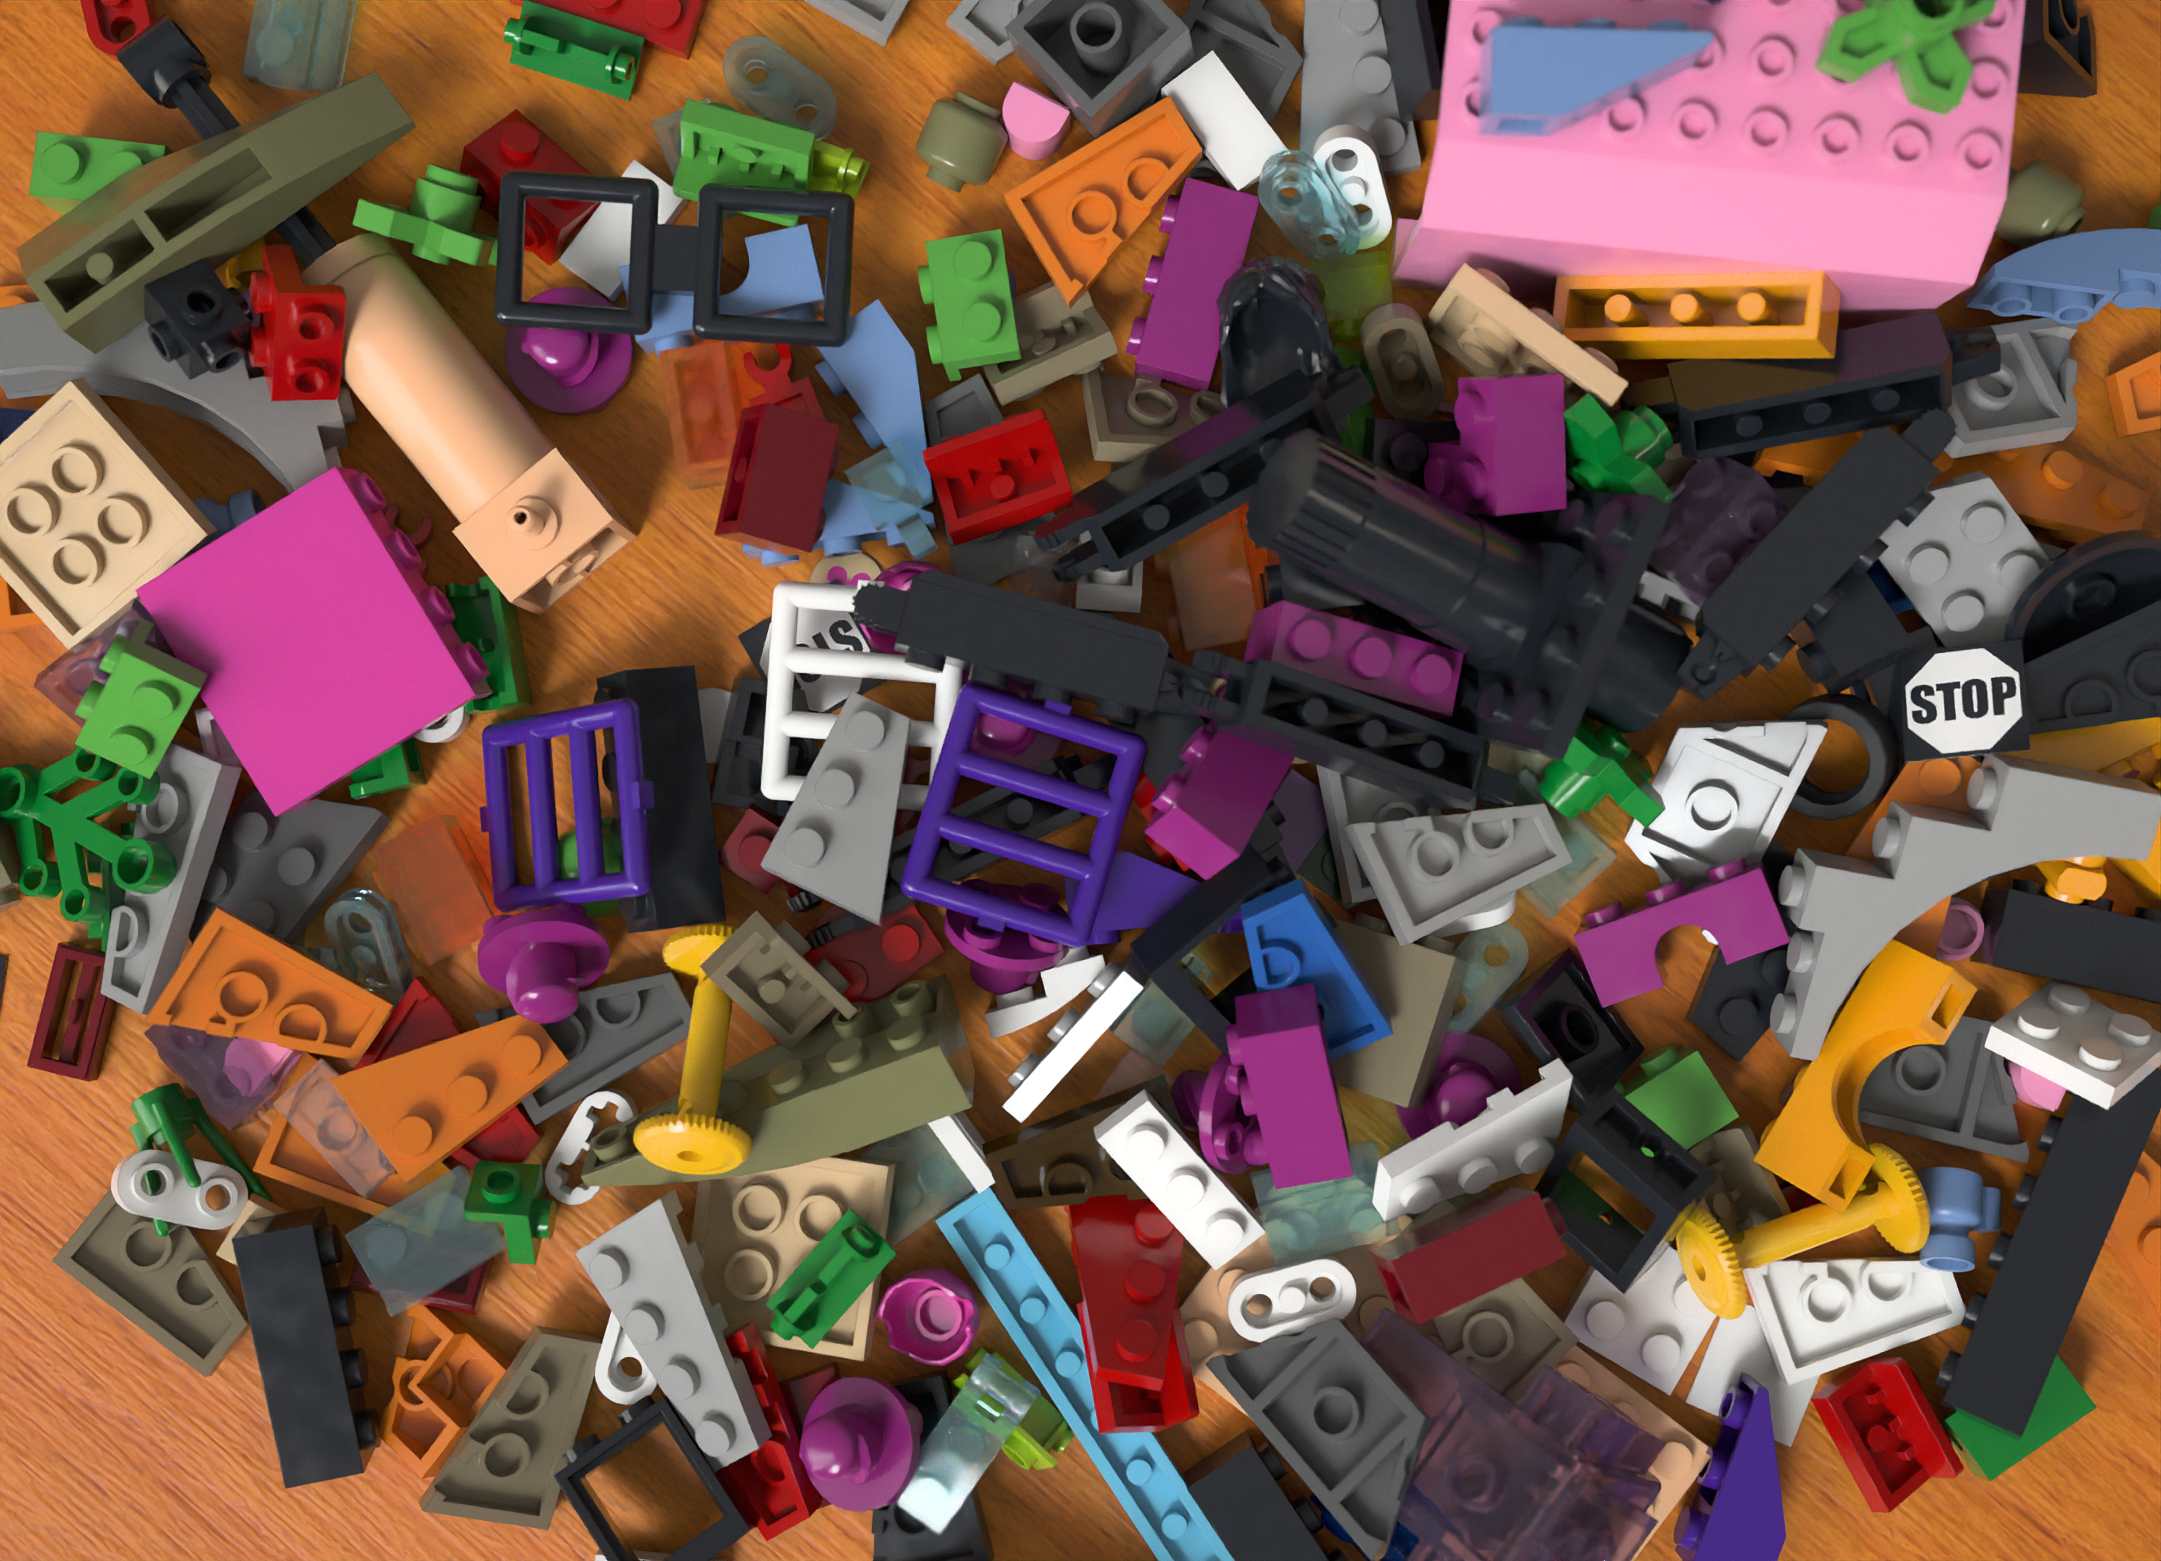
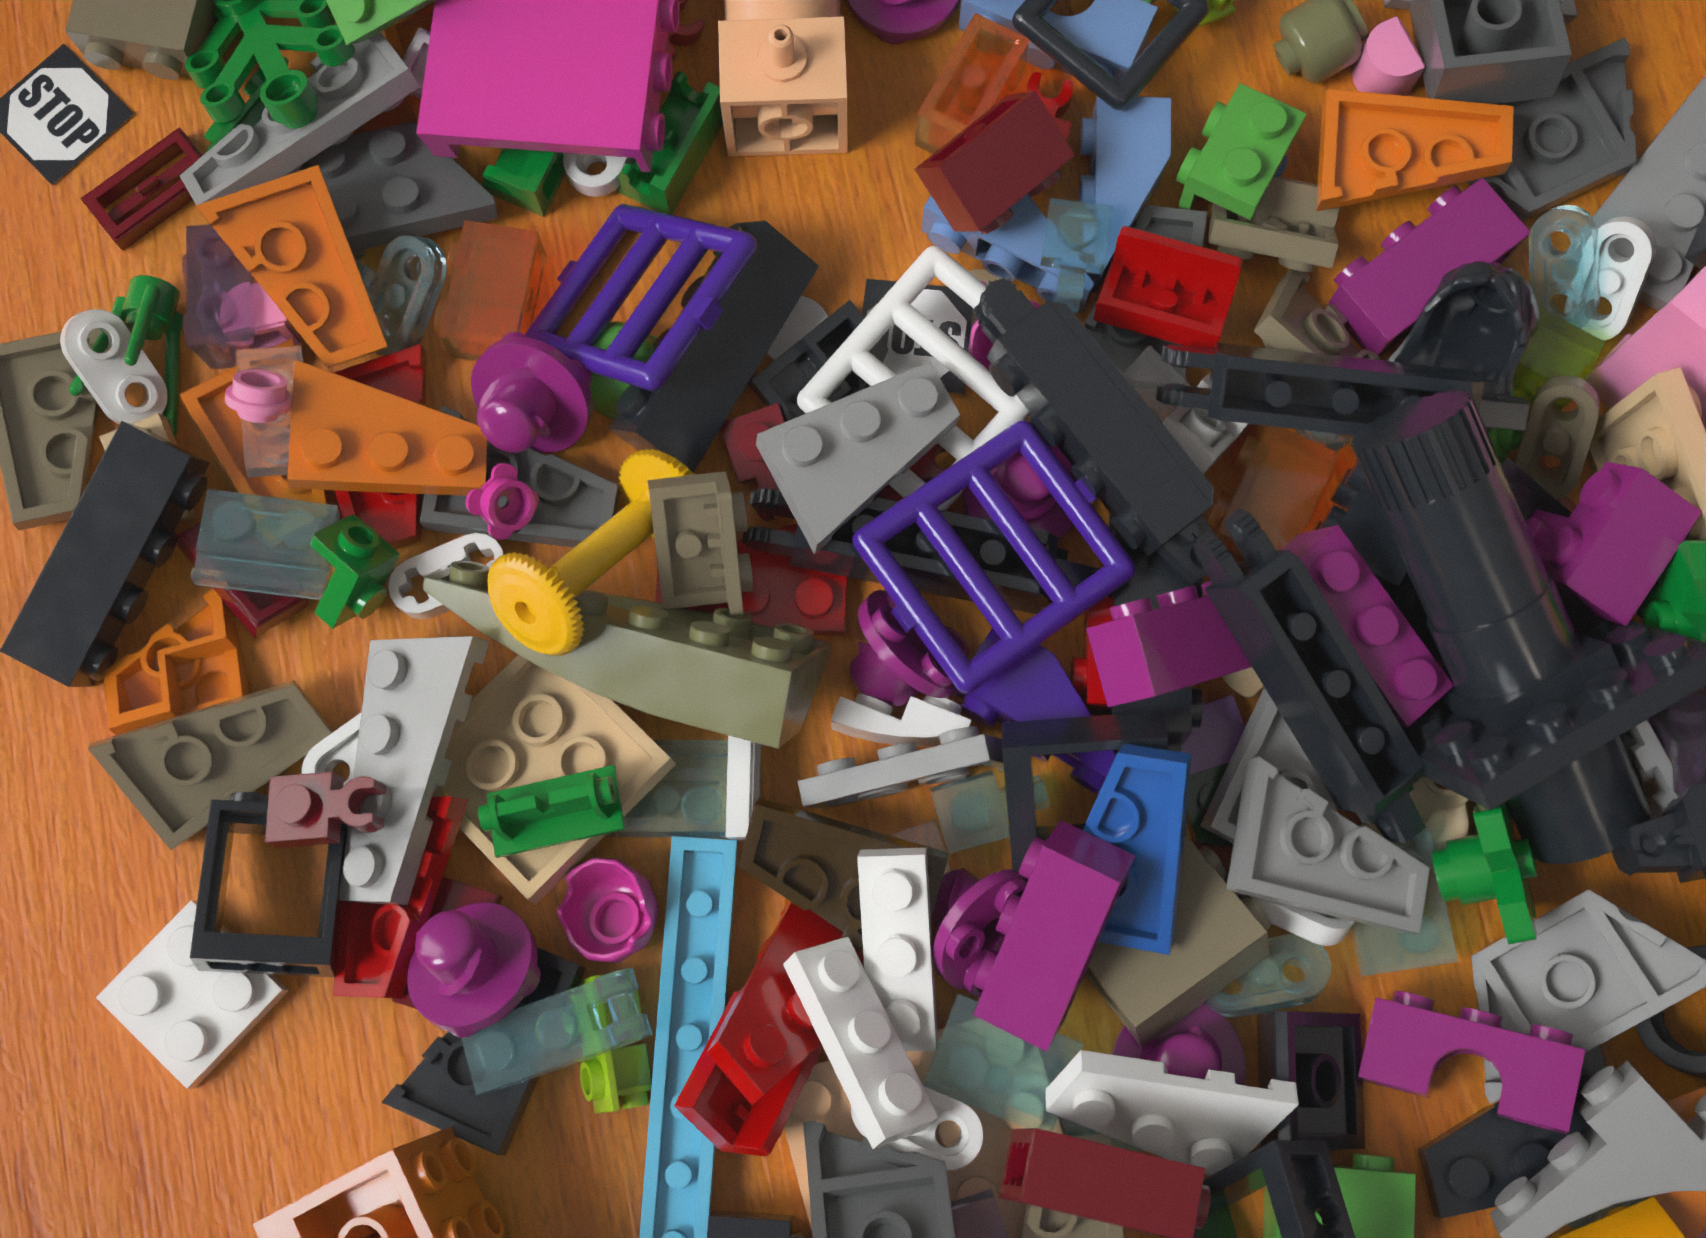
camera: 40 degrees right, 10 degrees down
(325, 1133) = (258, 395): none -> bright pink plate
(607, 1066) = (517, 511): none -> dark pink plate
(643, 1421) = (313, 807): none -> plate
(1204, 1276) = (860, 1042): none -> white plate
(1224, 121) = (1542, 158): white tile -> none

